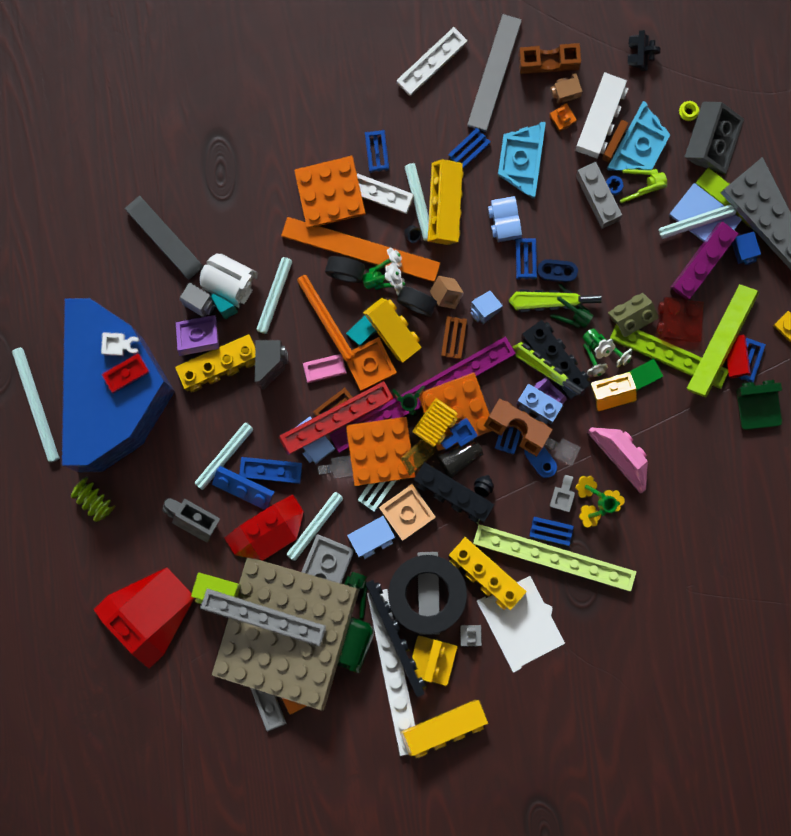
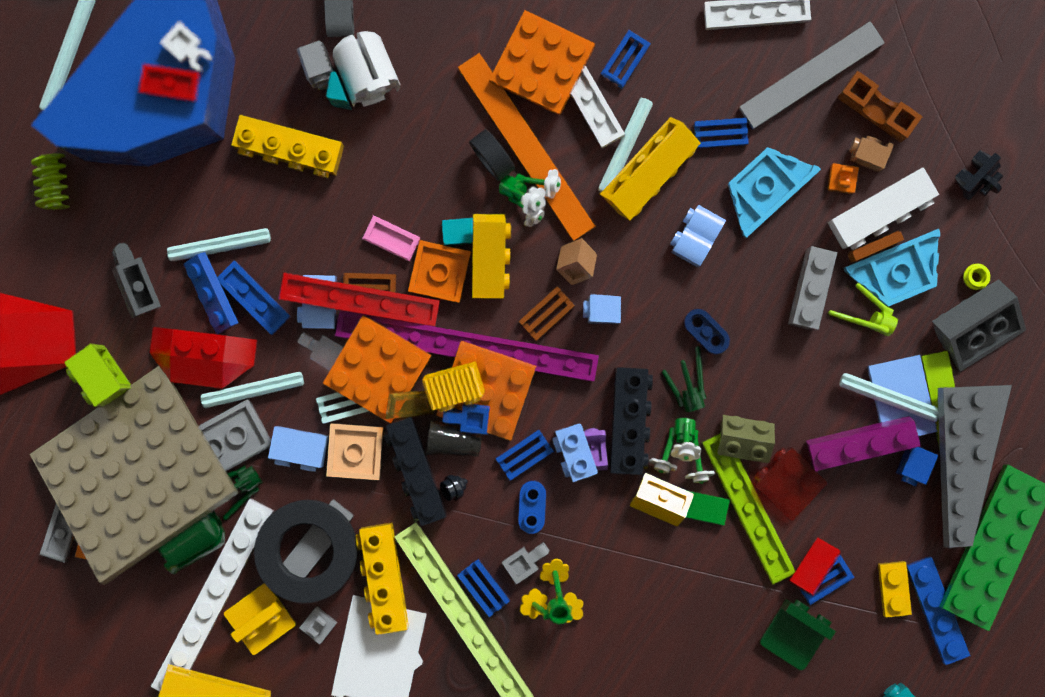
camera: 30 degrees right, 5 degrees up
(197, 335) = (288, 100): medium lavender plate -> none
(263, 617) = (118, 443): light grey tile -> none
(269, 361) = (335, 187): dark grey slope -> none
(274, 295) = (401, 122): light aqua axle -> none
(325, 318) = (433, 188): orange axle -> none
(400, 645) = (236, 580): black plate -> none
(409, 401) = (444, 343): dark green plant -> none
(415, 230) = (594, 179): black hinge -> none
(417, 301) = (538, 246): black tyre -> none
(533, 431) = (545, 477): dark orange arch -> none
(534, 266) = (671, 310): blue tile -> none
(539, 300) = (663, 346): lime sword -> none
(544, 366) = (611, 421): lime sword -> none
(564, 451) = (562, 518): clear plate -> none
(617, 180) = (839, 298): blue bush -> none
(623, 454) = (618, 571): bright pink wedge -> none
(722, 341) = (813, 539): lime tile -> none

